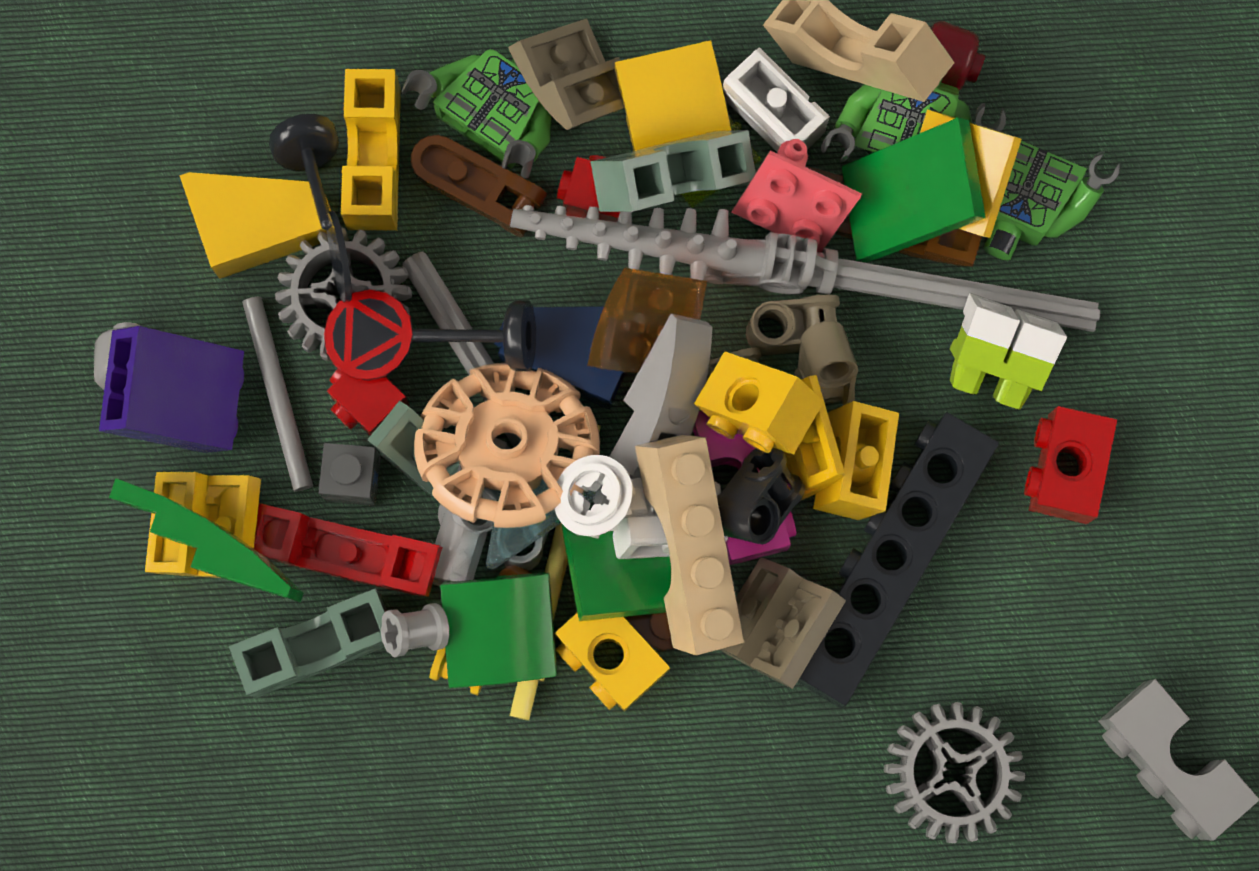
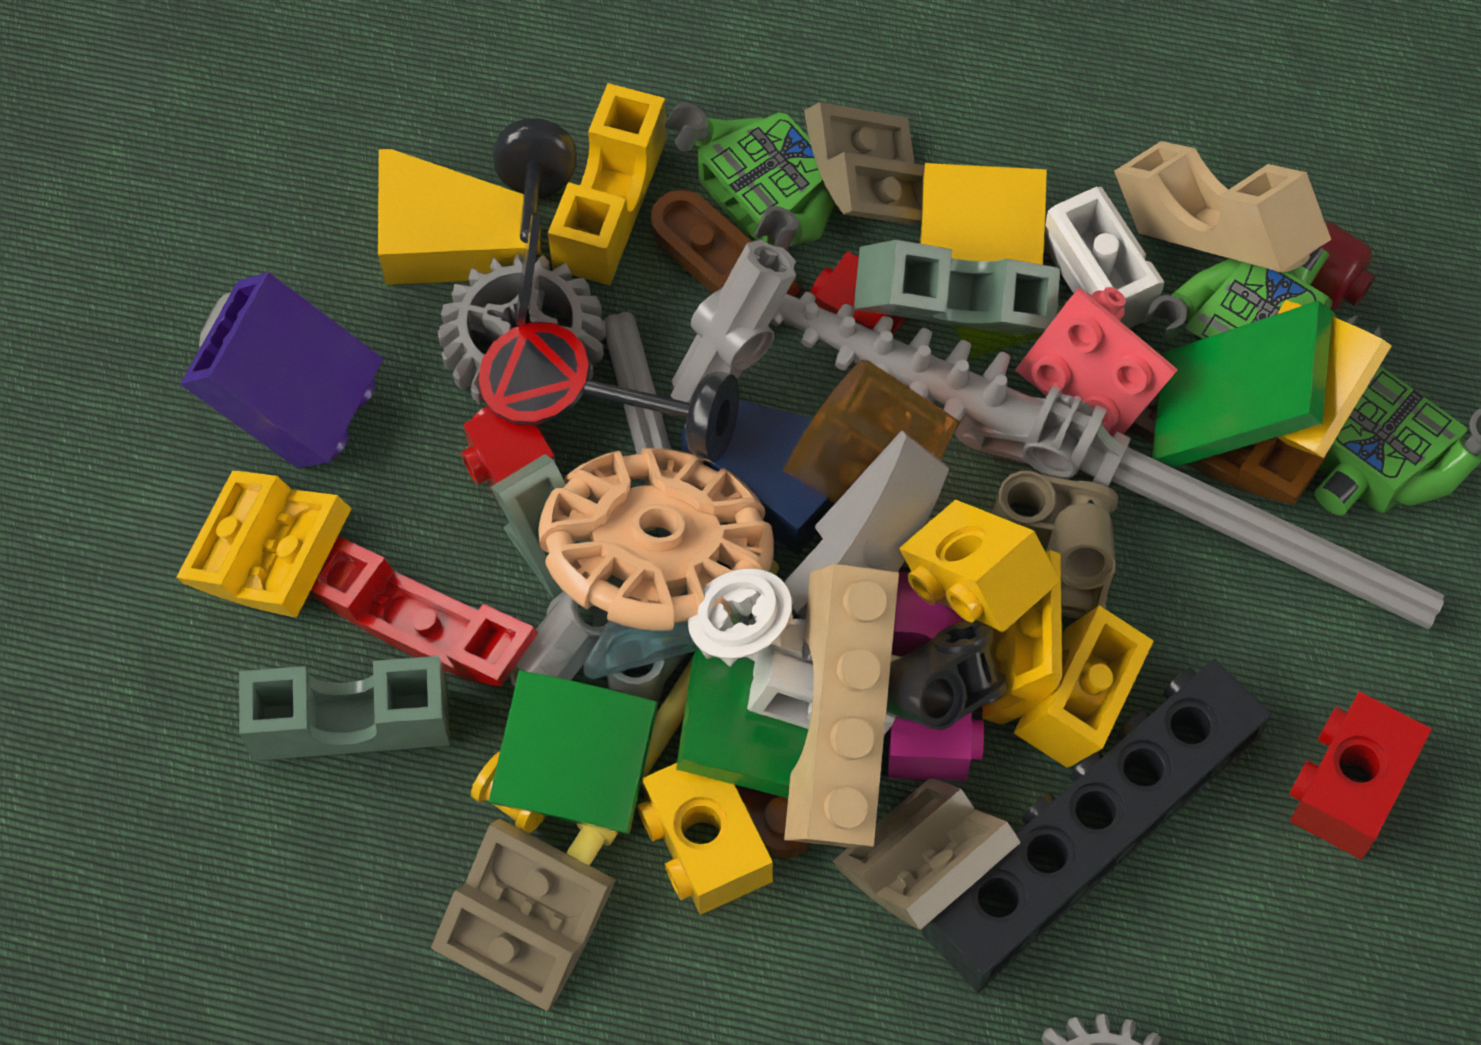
camera: 20 degrees right, 15 degrees down
(217, 548) = (262, 554): green slope -> none
(277, 394) = (406, 426): light grey bar -> none
(349, 474) = (457, 530): dark grey brick -> none
(415, 630) = (469, 713): light grey bush -> none
(497, 755) = (523, 914): none -> dark tan slope
(512, 253) = (736, 319): none -> light grey piece
(1006, 345) = (1331, 628): hips -> none

